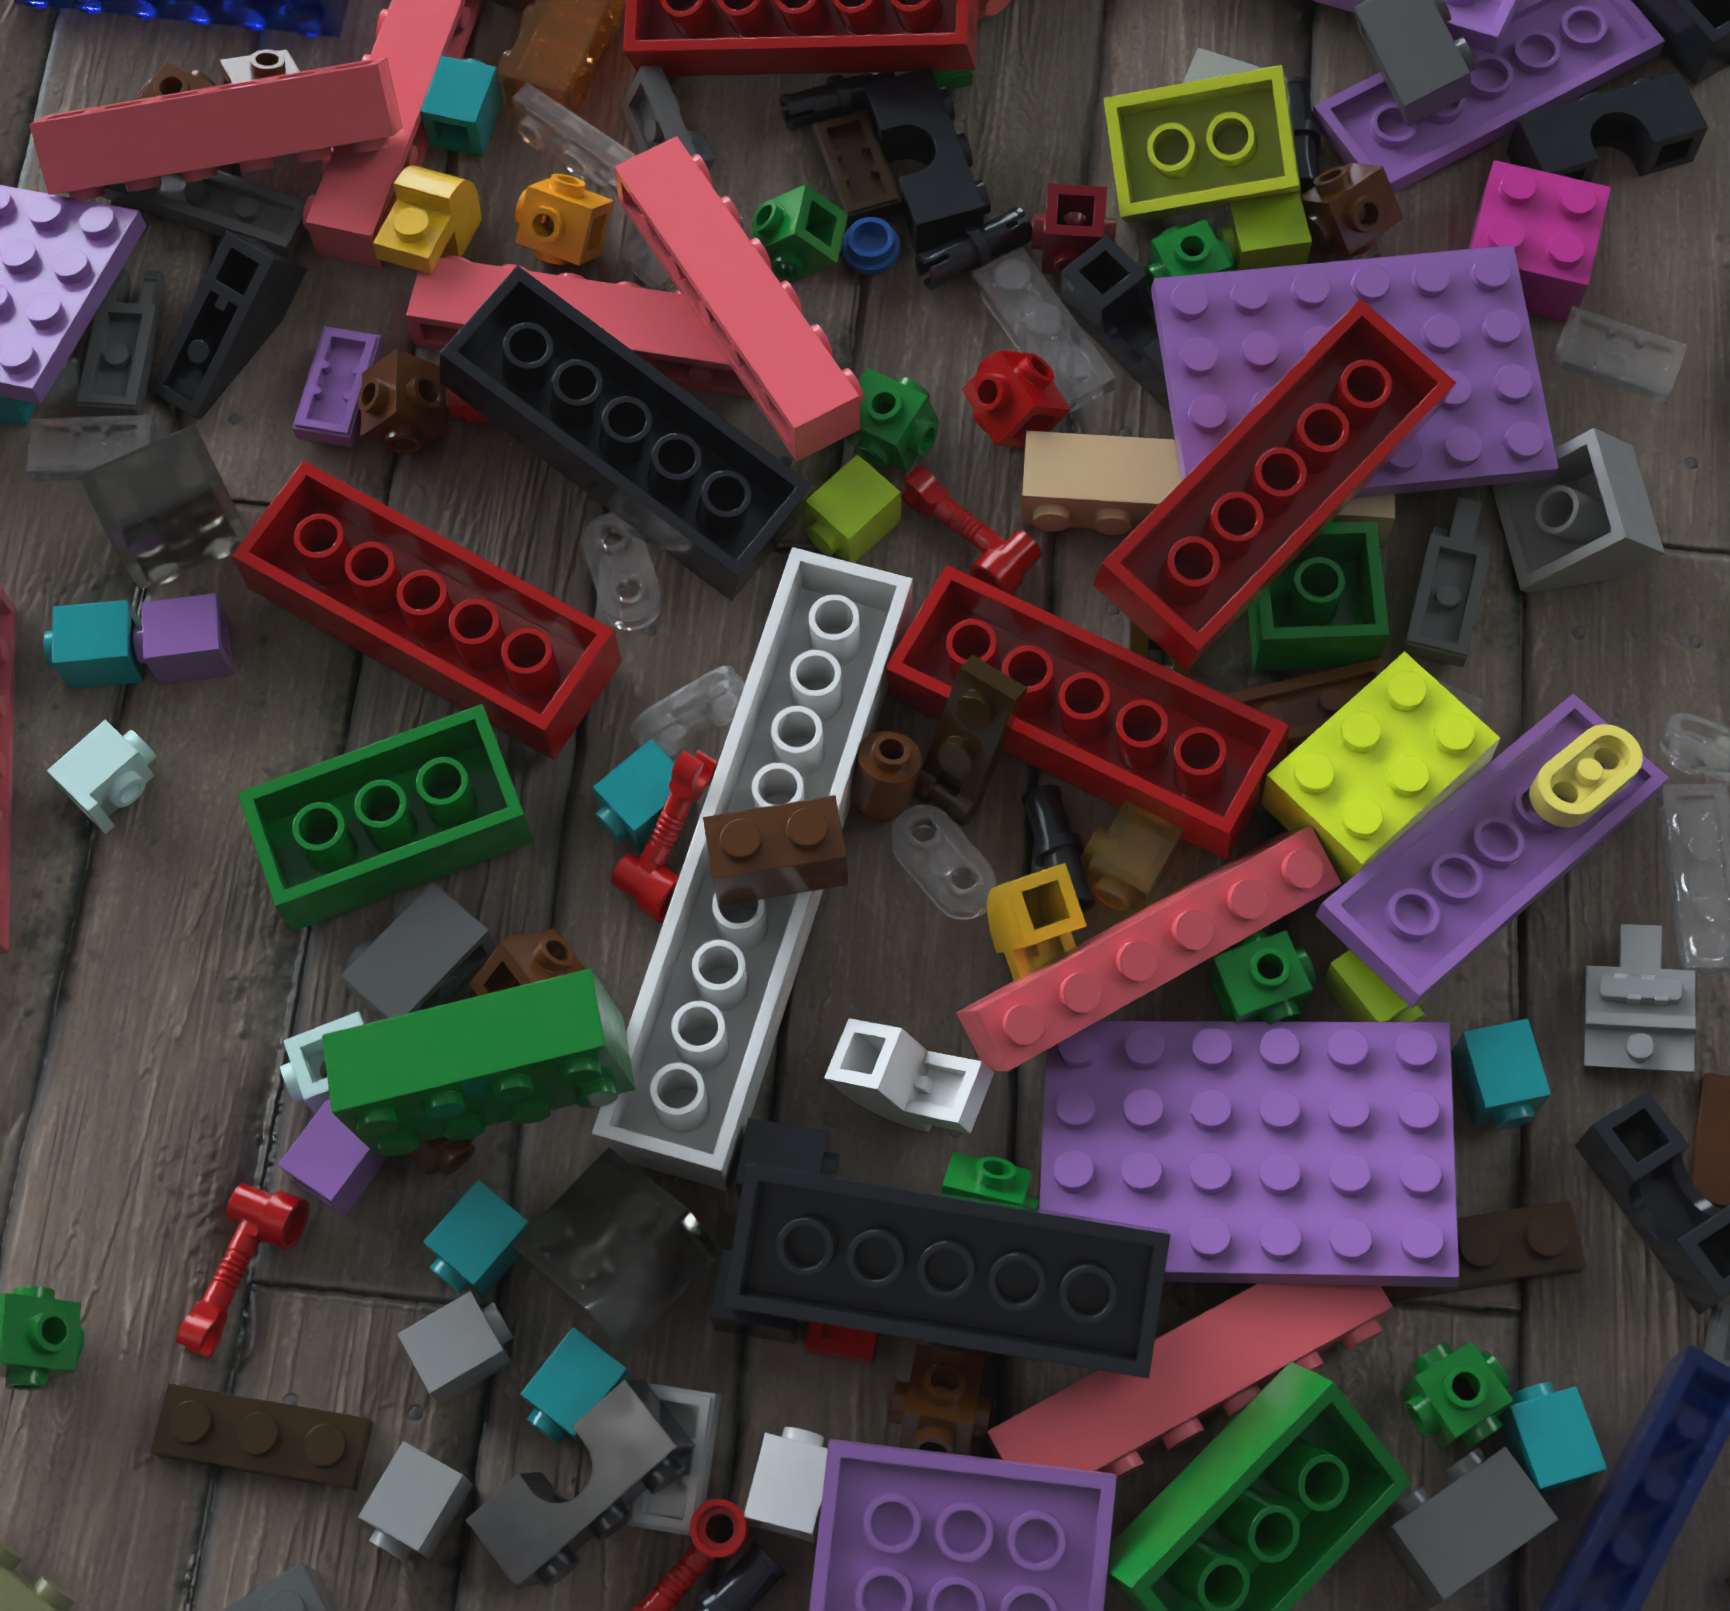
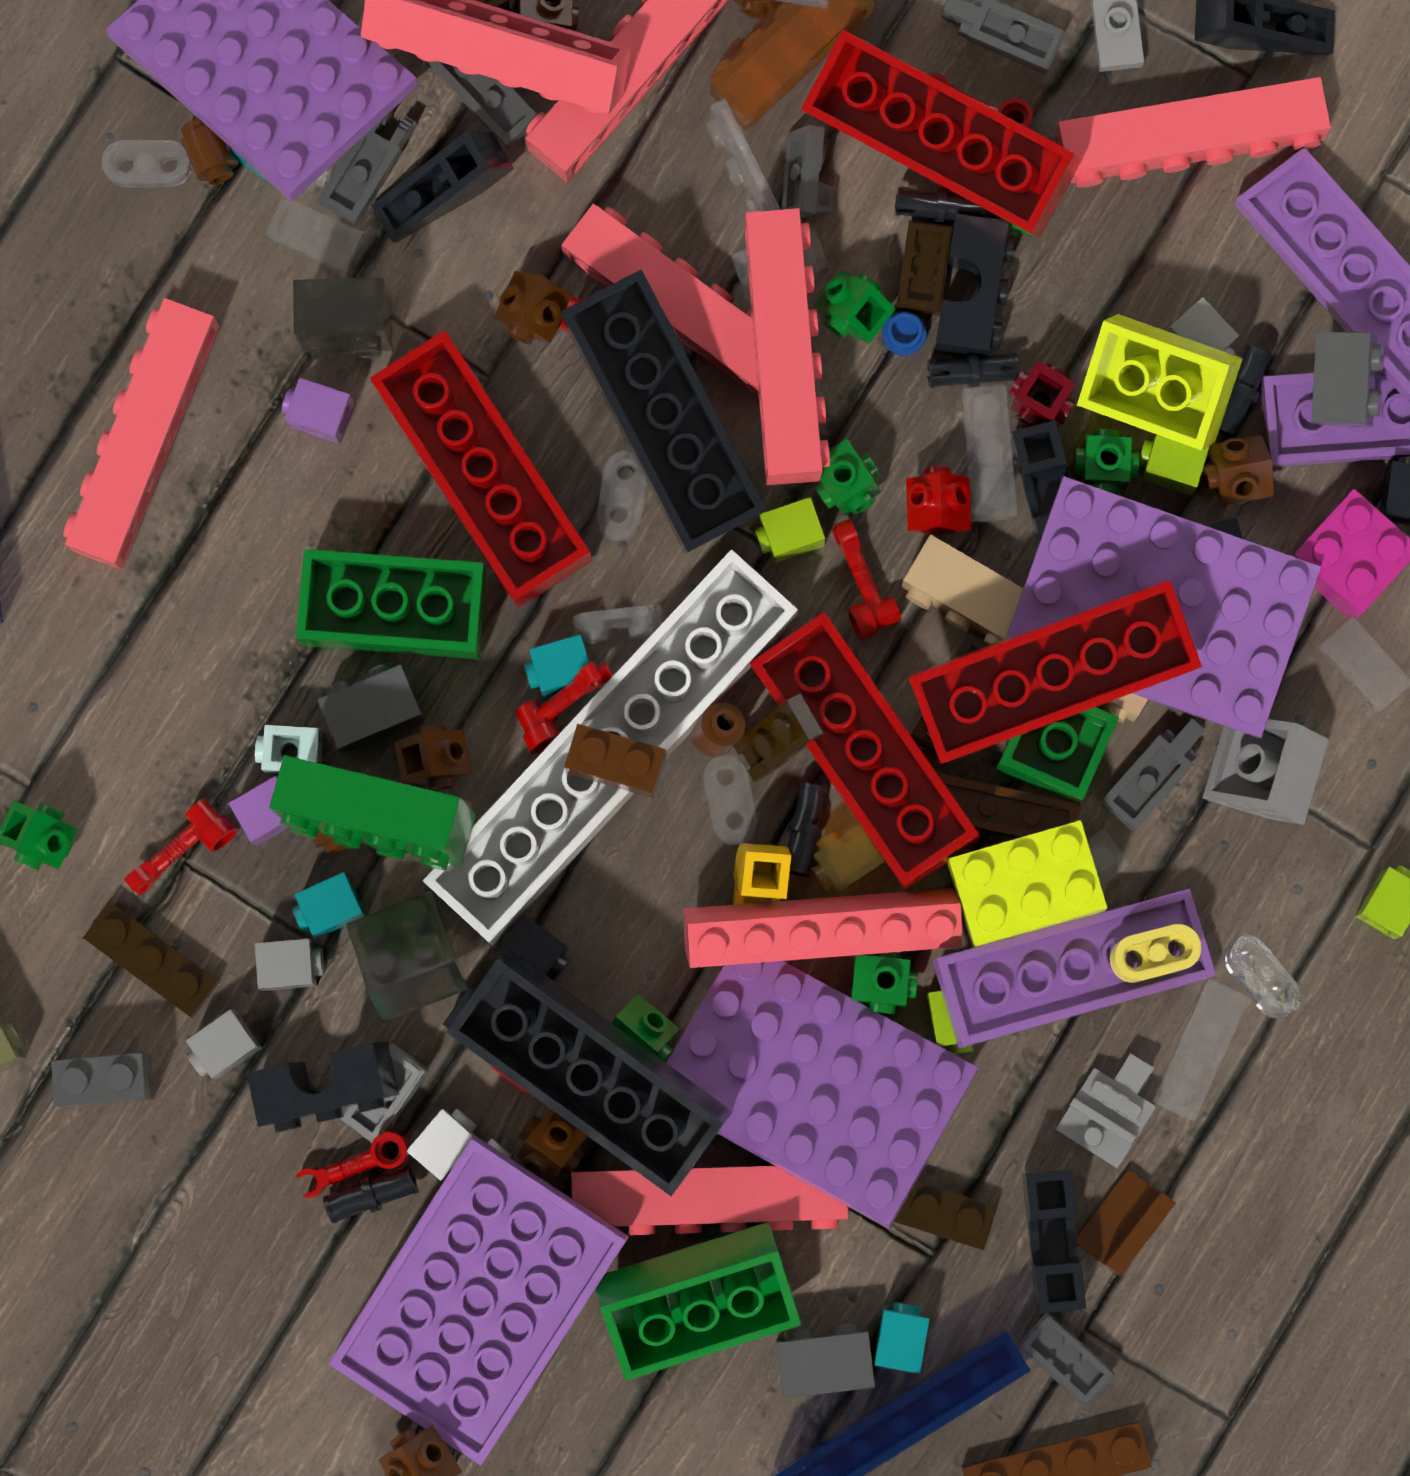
camera: 30 degrees right, 15 degrees up
(94, 644) = (258, 385): teal brick -> none
(104, 772) = (229, 482): light aqua brick -> none
(330, 397) = (494, 266): medium lavender plate -> none
(429, 219) = (609, 175): yellow brick -> none
(462, 105) = (676, 85): teal brick -> none
(562, 220) = (701, 217): light orange brick -> none
(571, 1385) = (345, 1024): teal brick -> none
(904, 1081) = (633, 935): white brick -> none
(1440, 1412) = (856, 1268): green brick -> none
(1501, 1074) = (999, 1111): teal brick -> none

